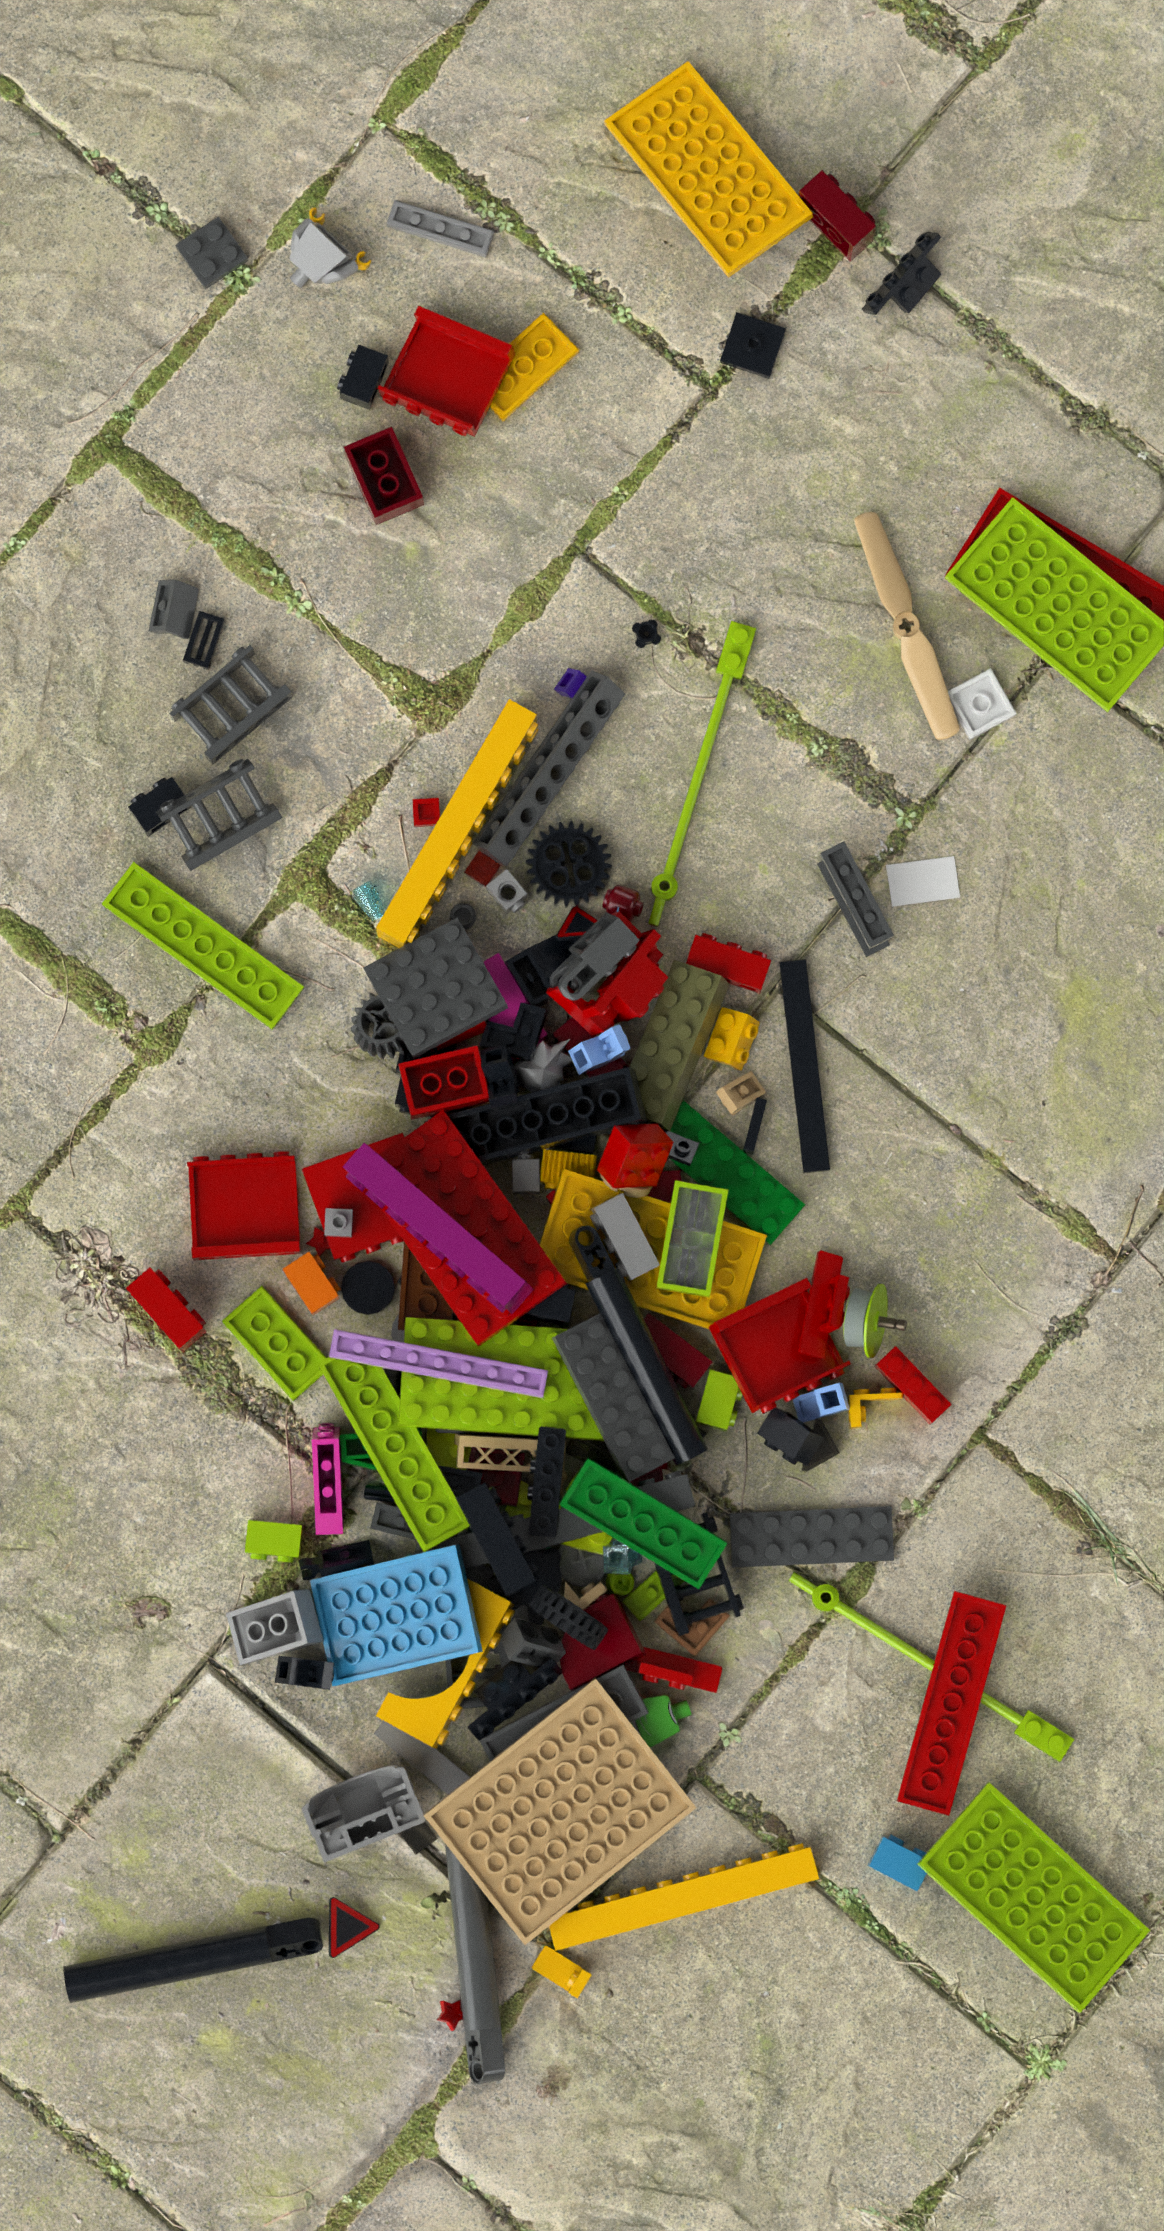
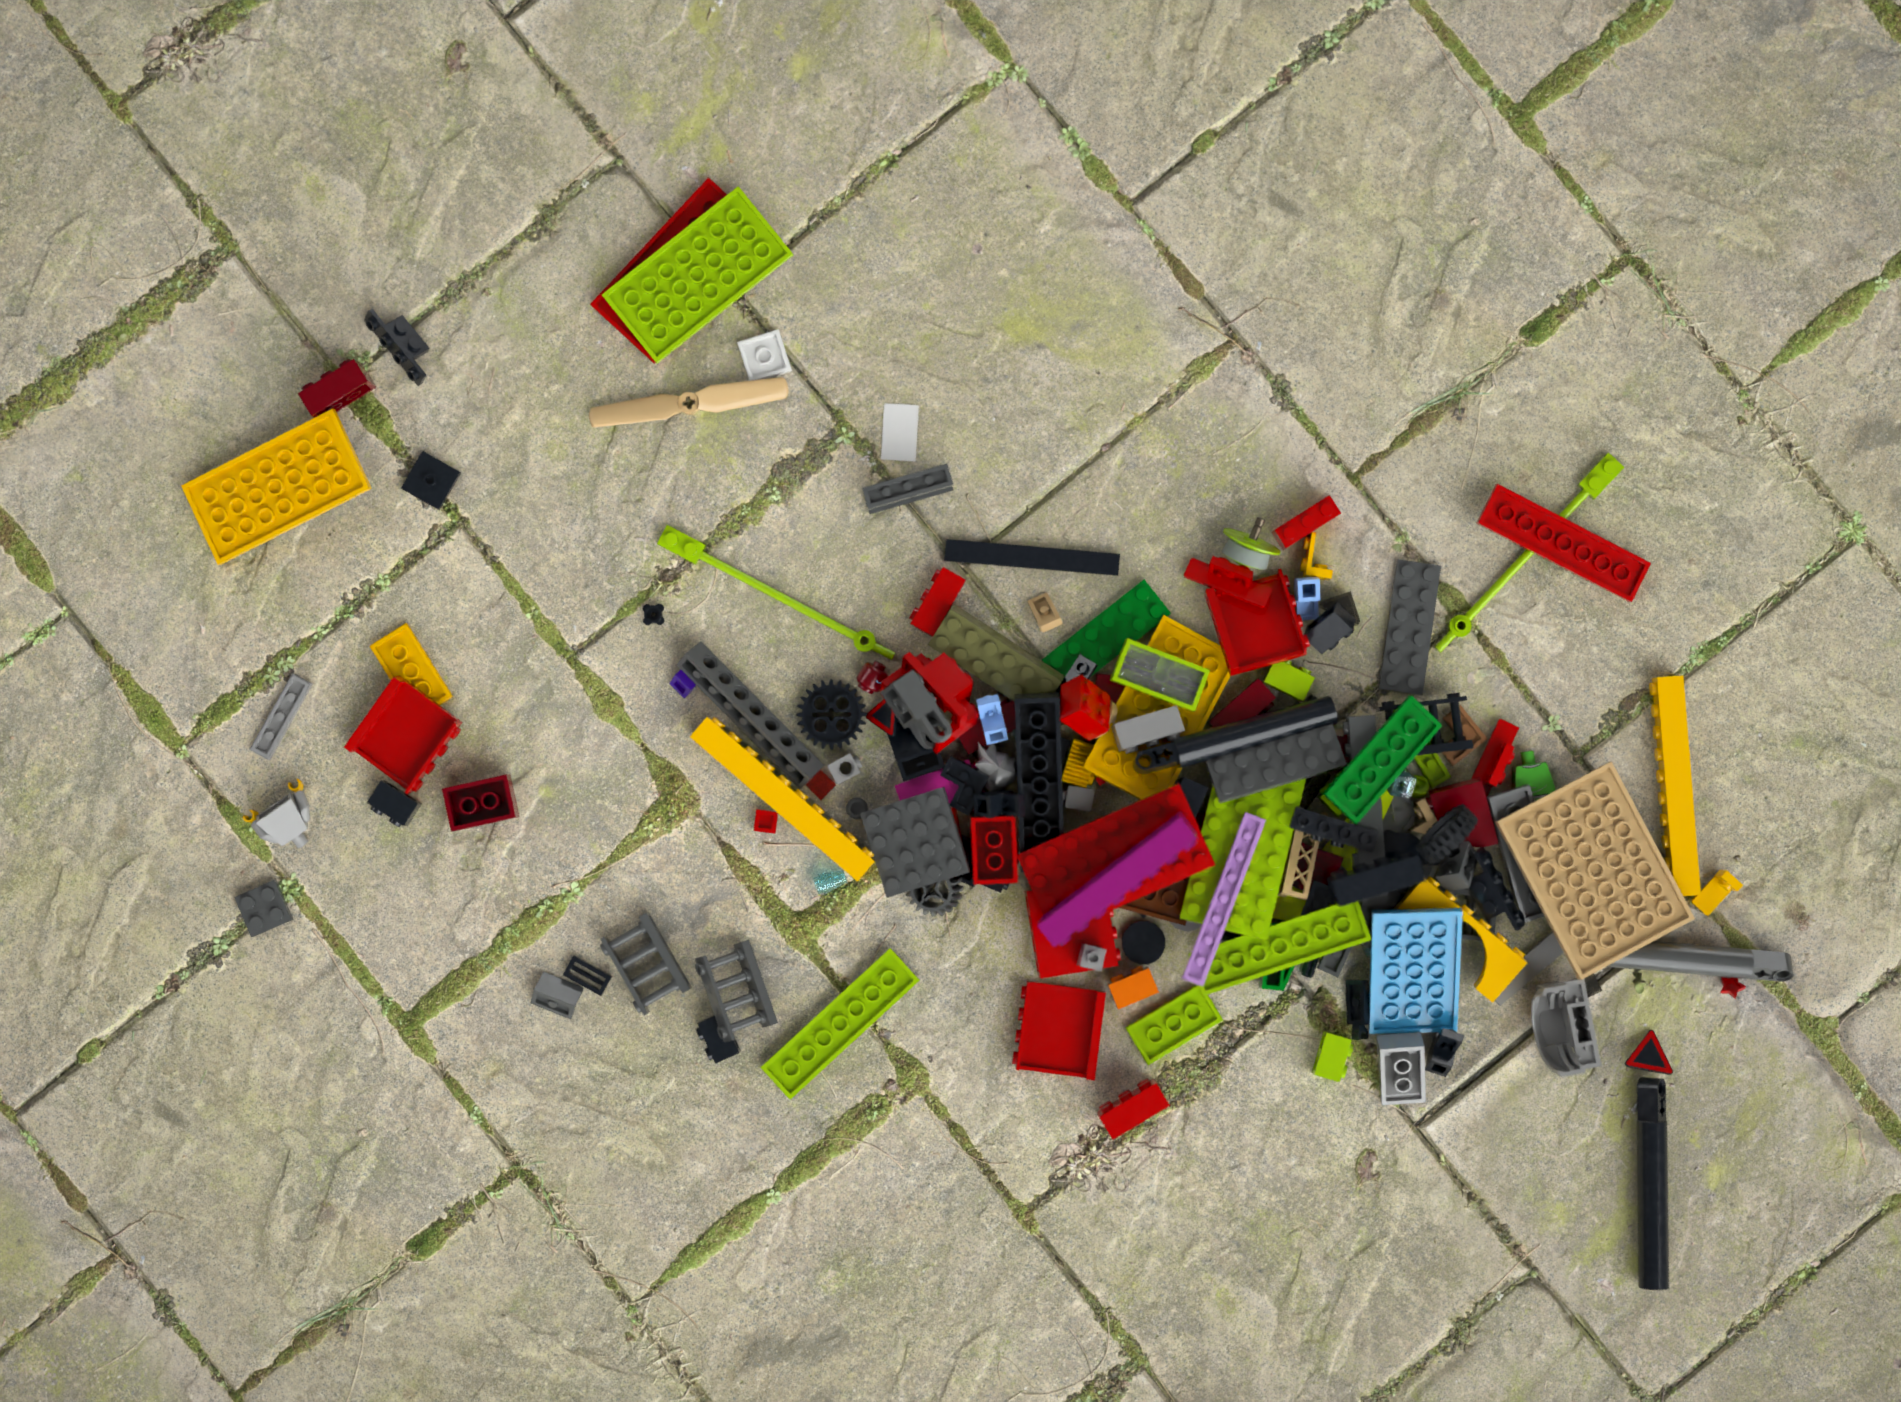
camera: 75 degrees left, 5 degrees up
(319, 1242) = (1098, 975): red piece -> none
(327, 1479) = (1292, 1004): dark pink slope -> none
(732, 1038) = (998, 611): yellow bracket -> none
(754, 1126) = (1073, 606): black tile -> none
(898, 1862) = (1680, 609): dark azure brick -> none
(1033, 1897) = (1728, 509): lime plate -> none

